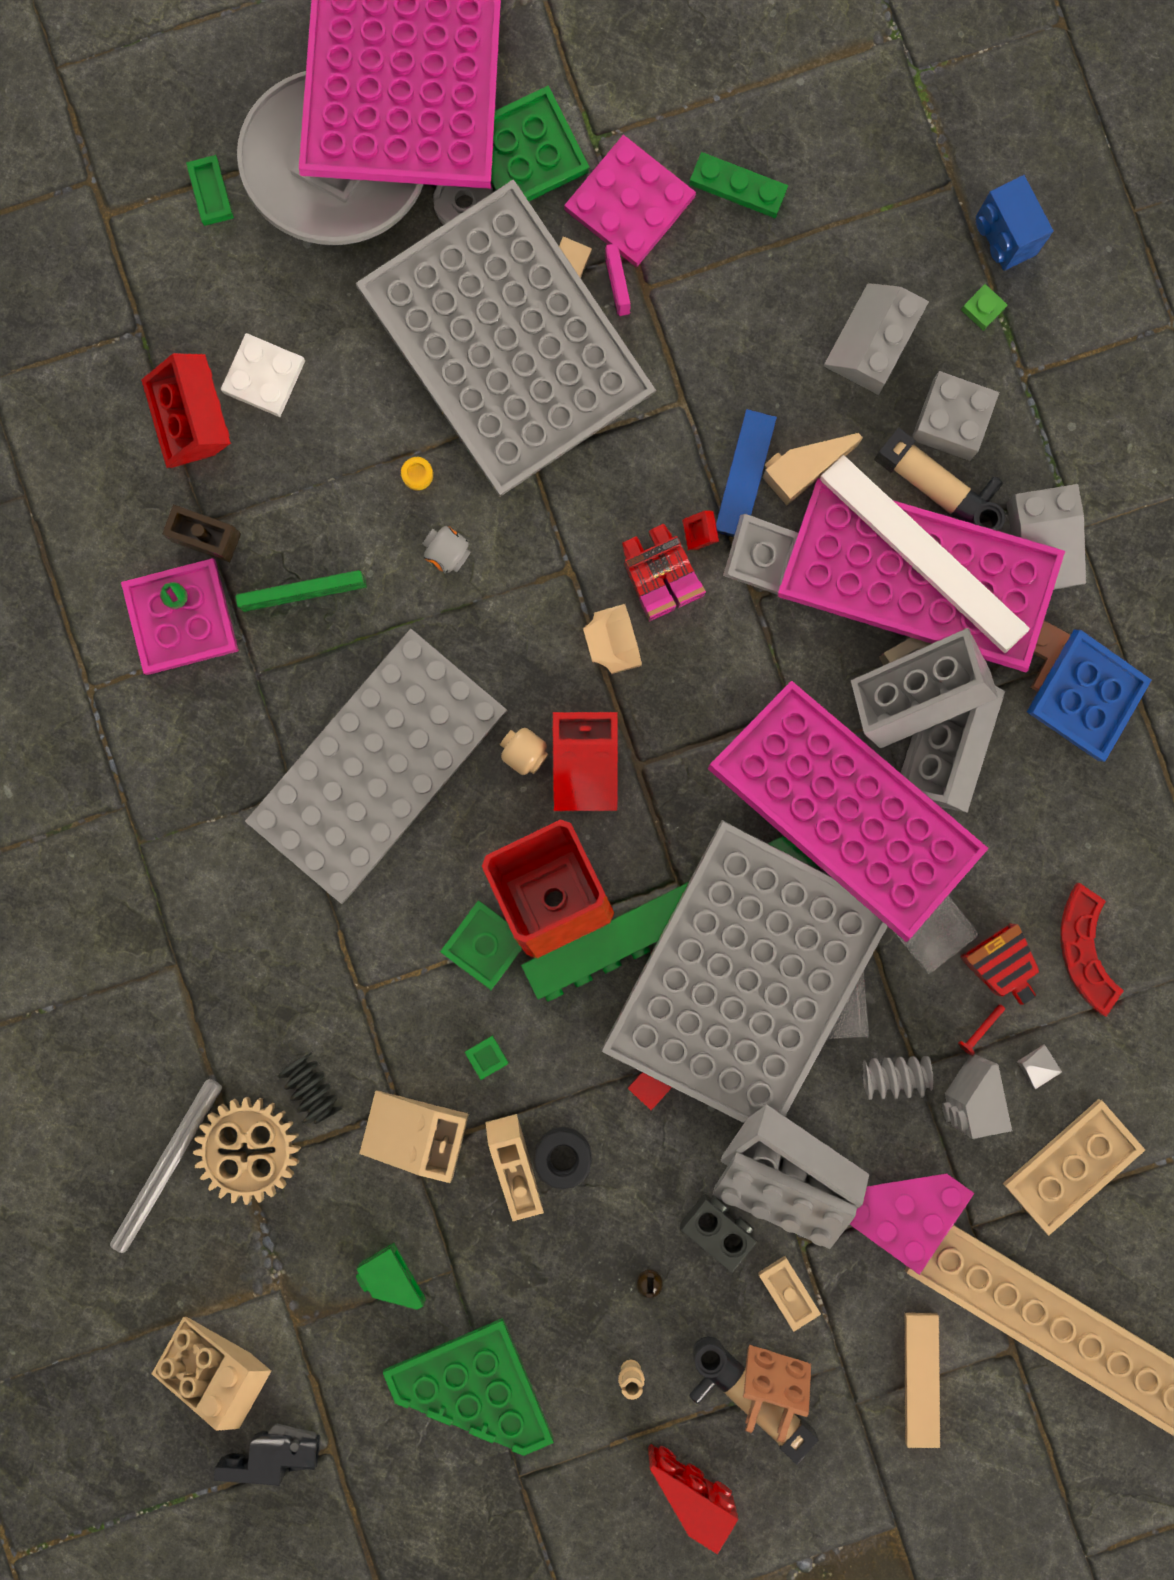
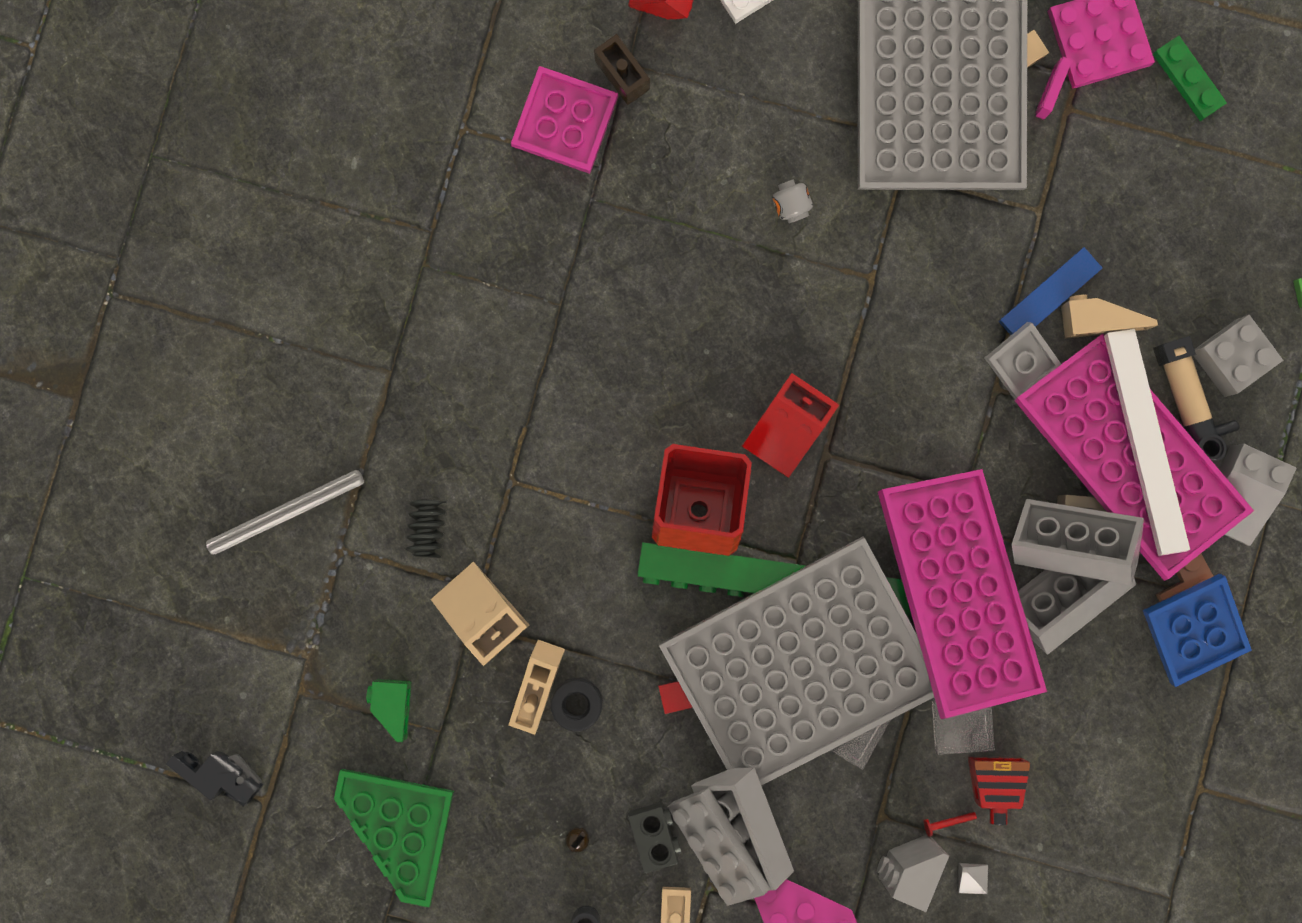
camera: 30 degrees right, 0 degrees up
(178, 590) = (577, 101): green hinge -> none
(211, 1375) = (215, 686): tan slope -> none
(248, 1179) = (337, 563): tan gear -> none
(301, 590) = (666, 160): green tile -> none
(376, 766) = (634, 325): light grey plate -> none
(417, 473) = (808, 131): yellow tile -> none
(483, 945) = (624, 509): green plate -> none
(486, 1057) = (570, 592): green plate -> none
(523, 751) = (749, 387): tan head -> none
(613, 640) = (870, 350): tan slope -> none
(631, 1379) = (517, 900): tan pin -> none
(659, 563) = (939, 325): hips -> none
(700, 530) = (989, 313): red plate -> none
(876, 335) = (1218, 257): light grey slope -> none
(897, 1076) = (863, 813): light grey piece -> none
(1079, 951) = (1060, 814): red tile -> none

